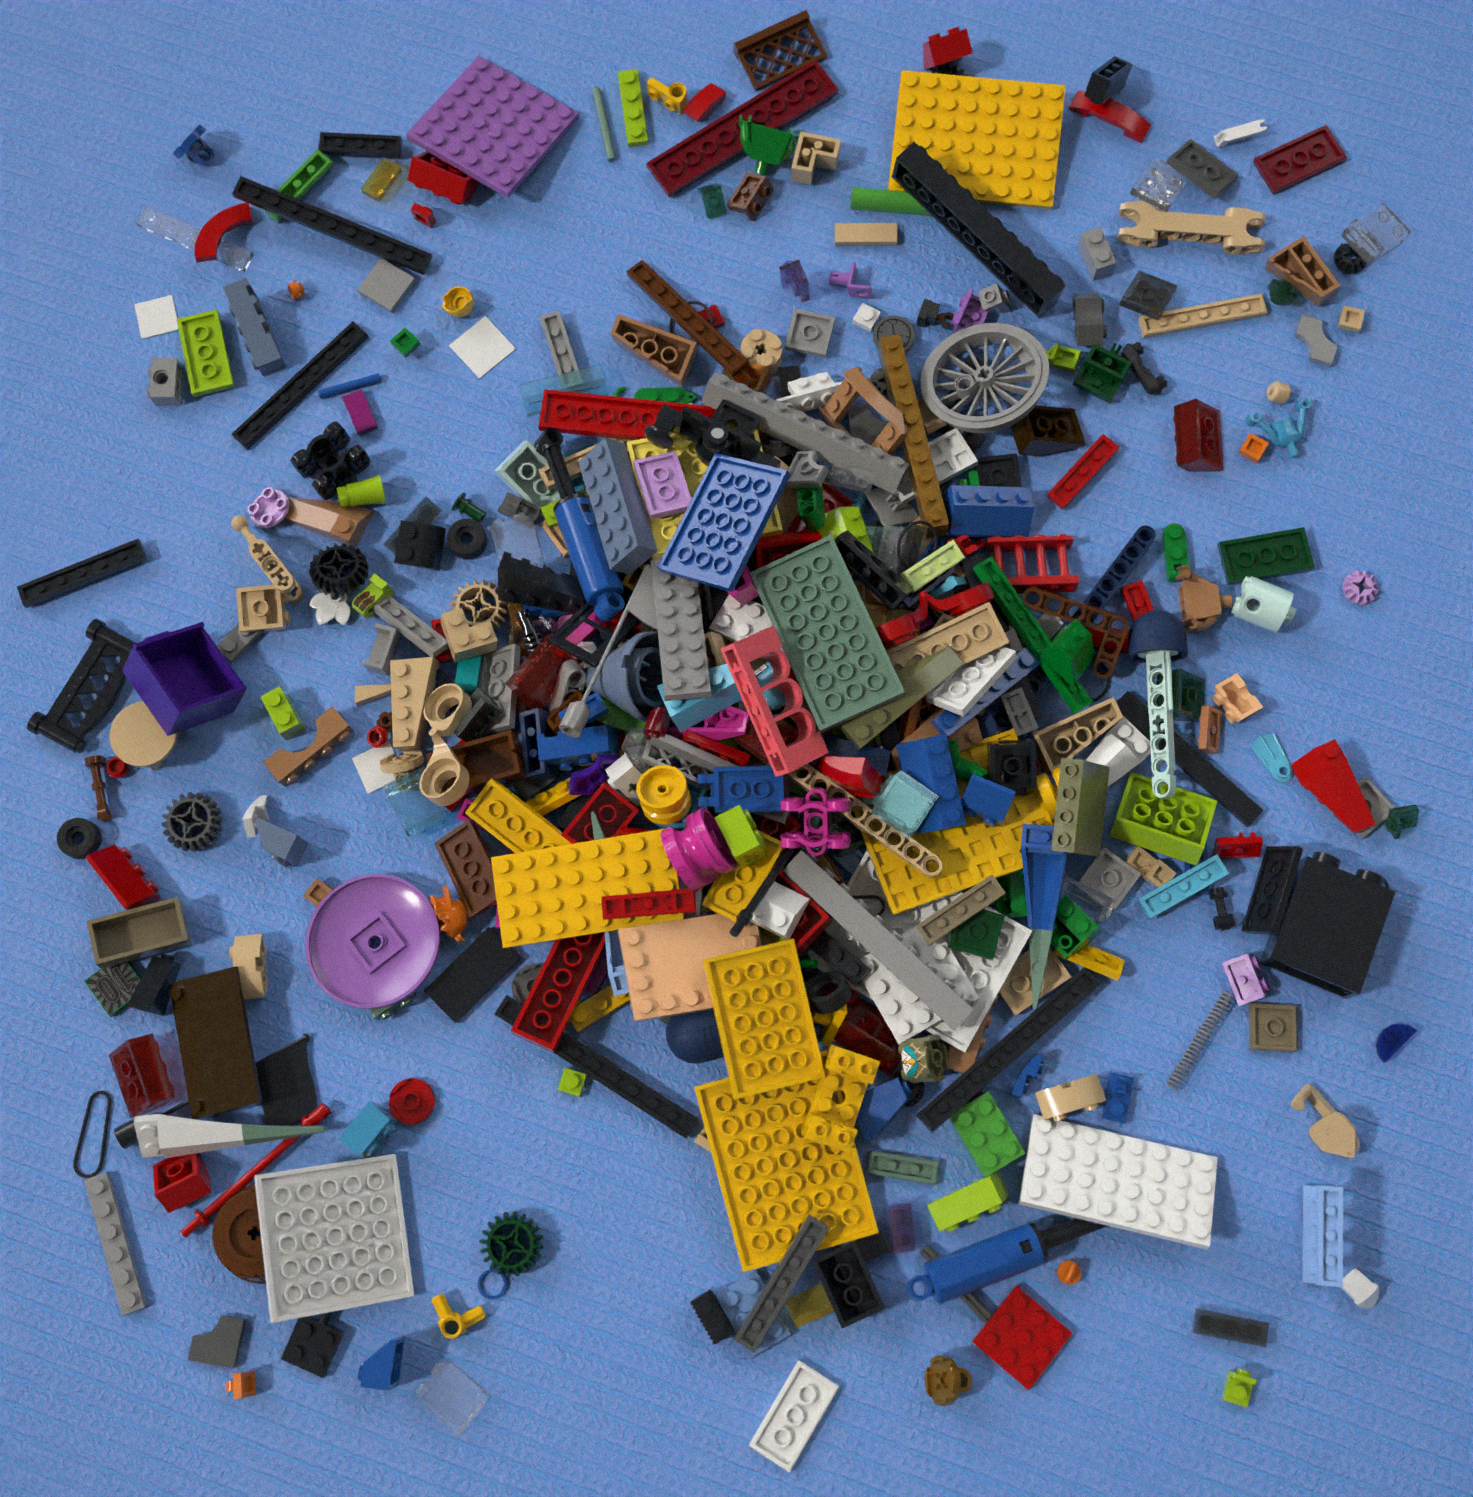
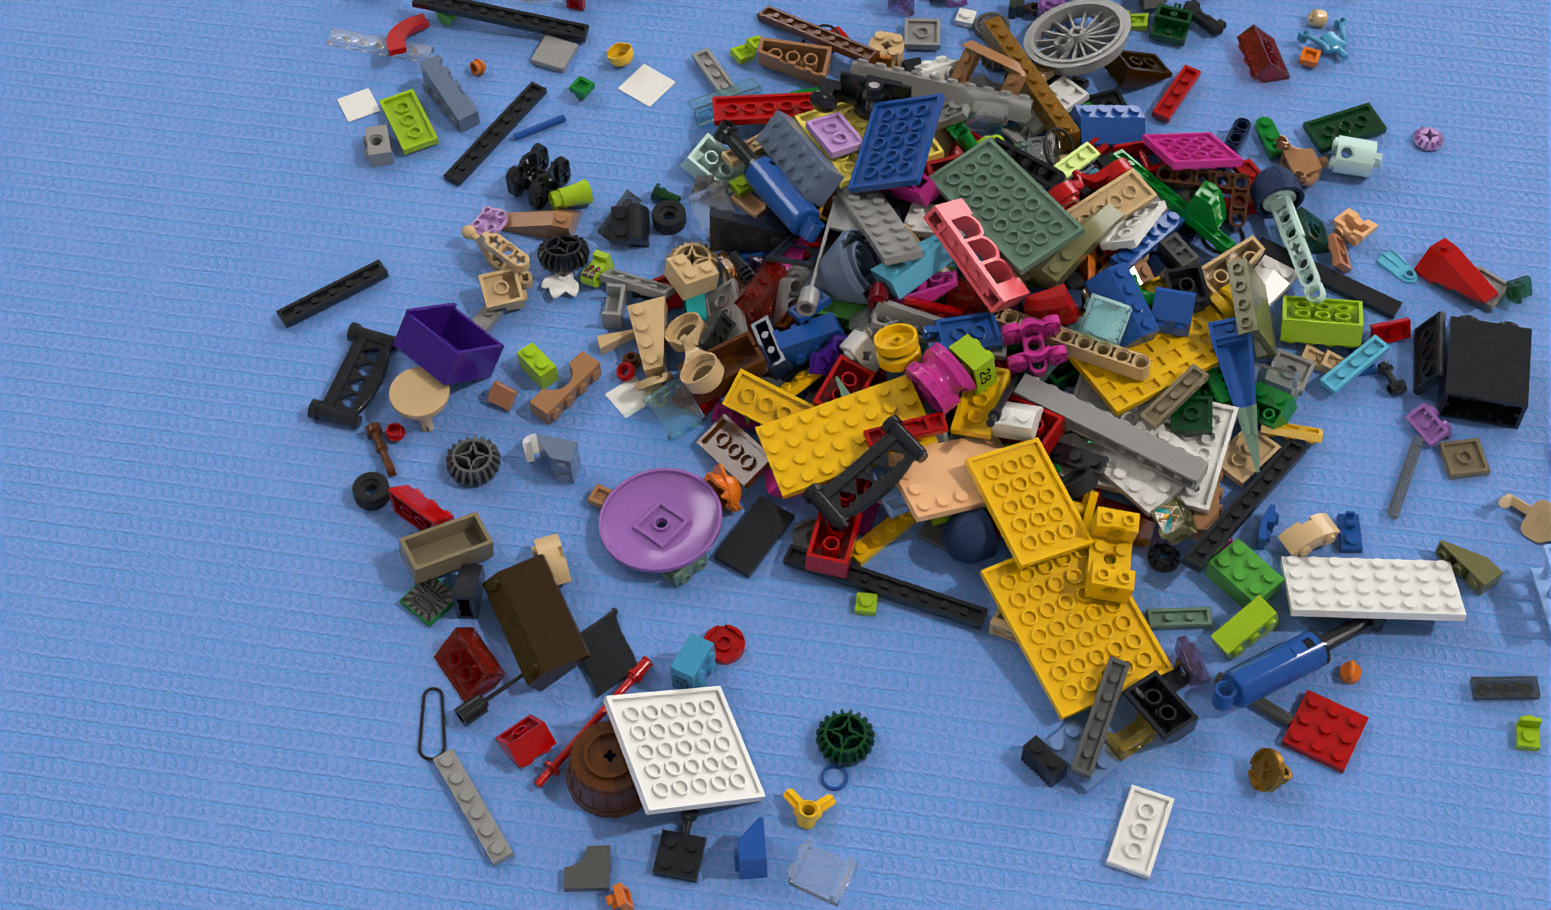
camera: 15 degrees left, 20 degrees down
(183, 1136) = (515, 701): white plate -> none
(238, 743) = (502, 395): none -> nougat tile
(359, 412) = (553, 143): magenta tile -> none
(548, 966) = (896, 440): none -> black piece
(603, 321) = (747, 51): none -> lime slope
(882, 1105) = (1150, 565): blue slope -> none
(1073, 570) = (1192, 150): none -> dark pink plate
(1244, 1178) = (1473, 568): none -> olive slope

